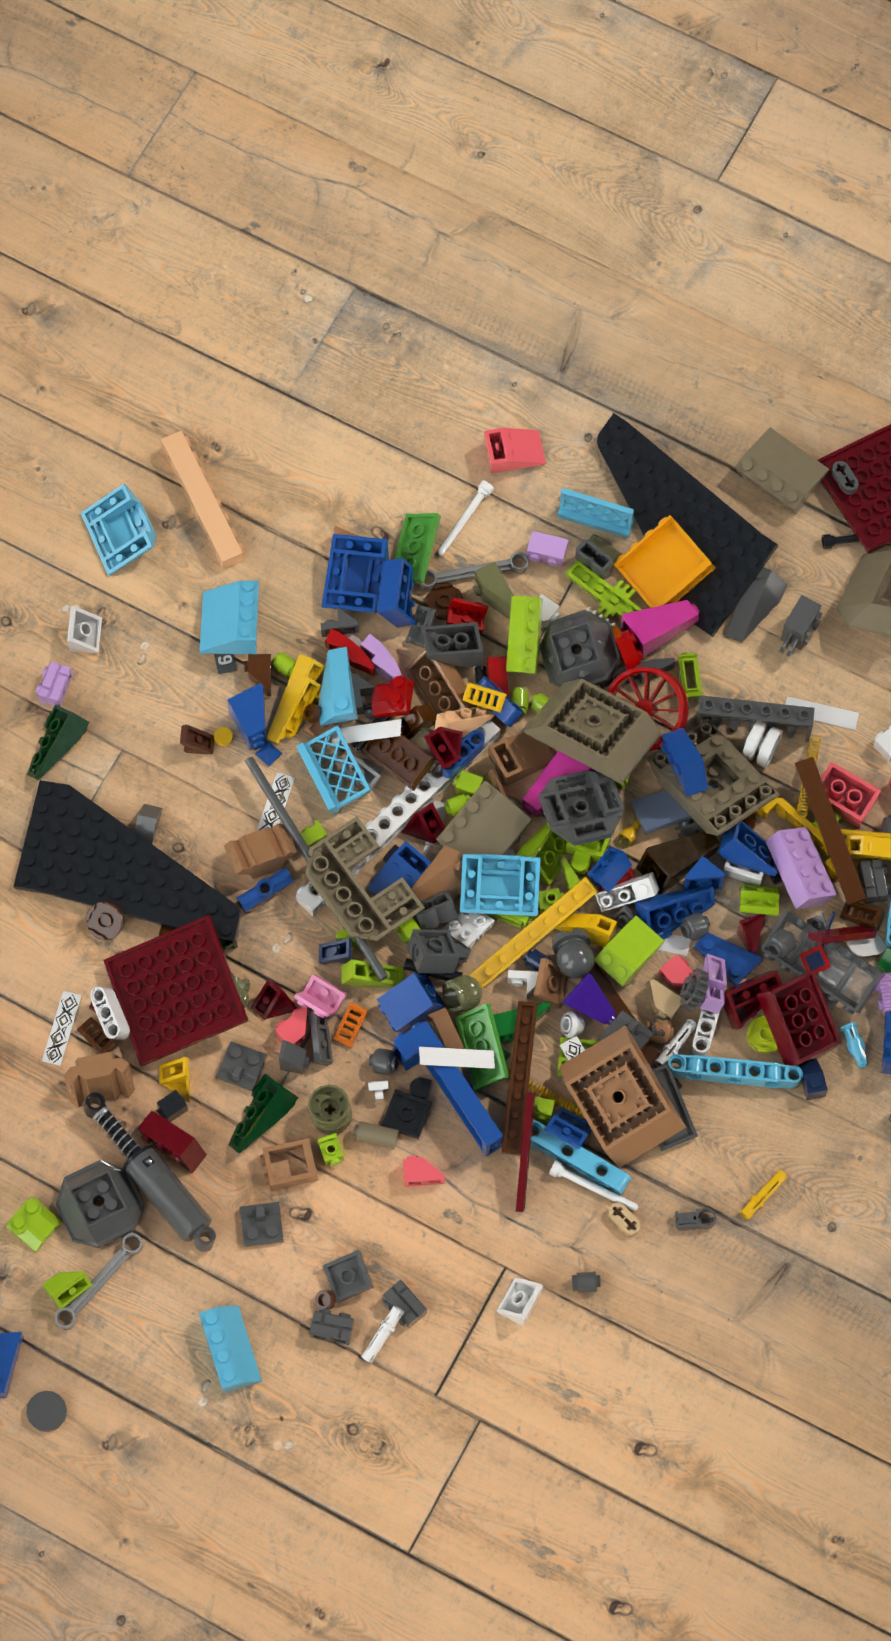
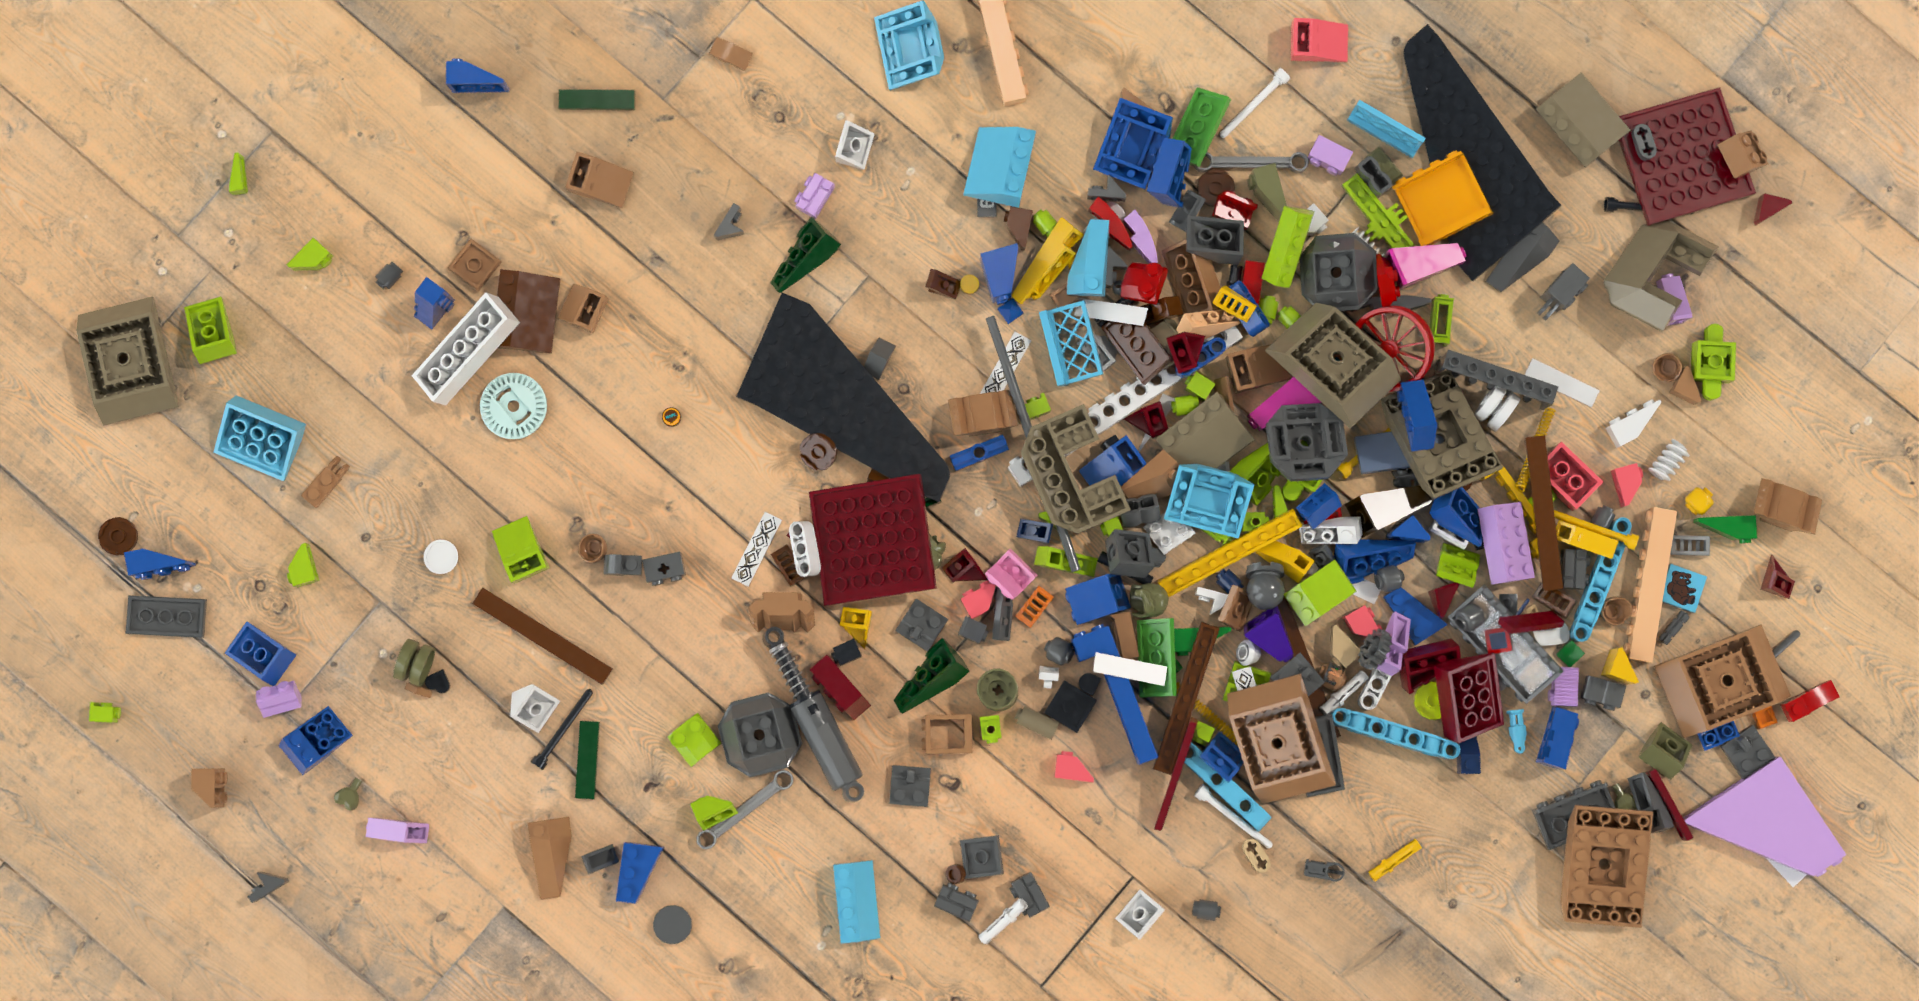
camera: 10 degrees right, 15 degrees up
(311, 713) = (1061, 281): reddish brown tile -> none

